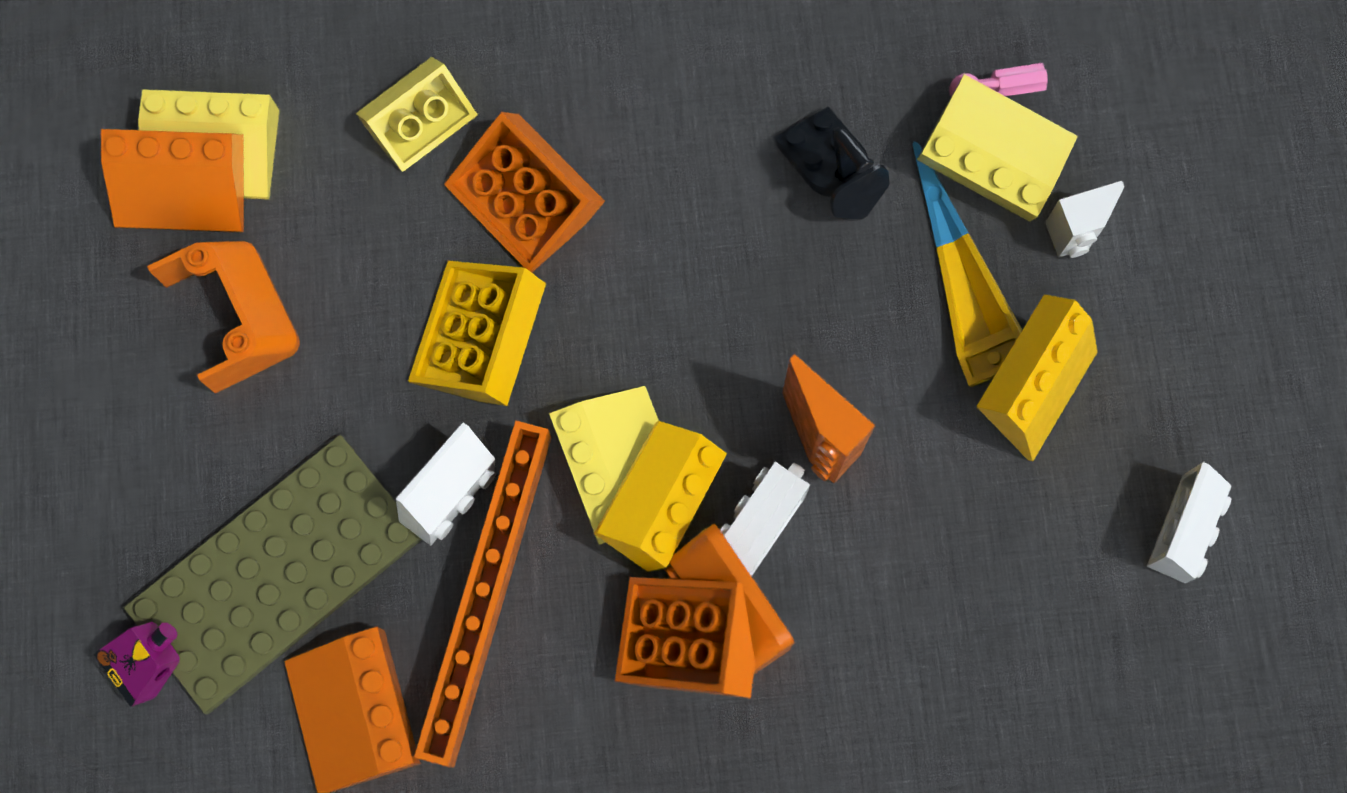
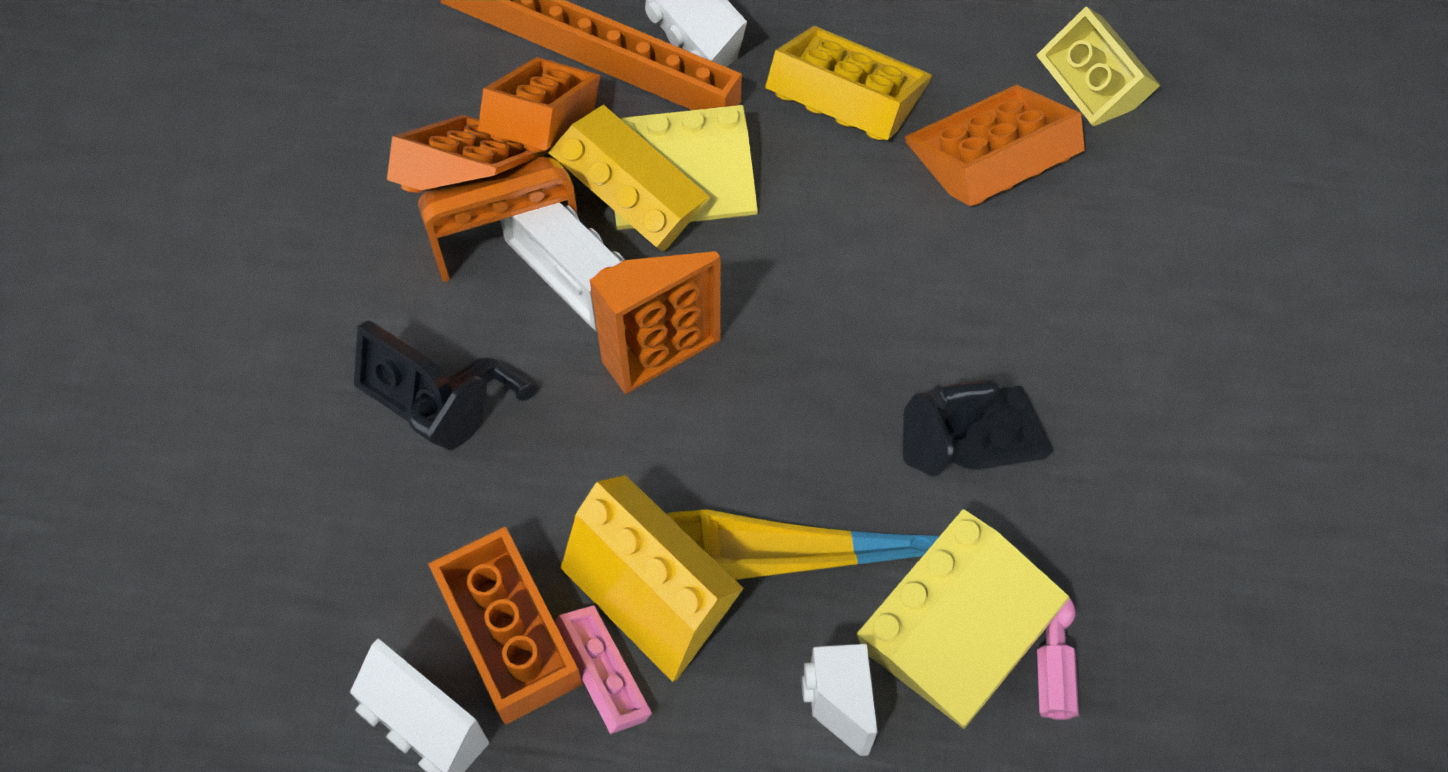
camera: 100 degrees right, 15 degrees down
(601, 597) = (537, 103): none -> orange brick
(928, 610) = (419, 392): none -> black plate
(1103, 481) = (506, 625): none -> orange brick
(1108, 402) = (603, 669): none -> bright pink plate

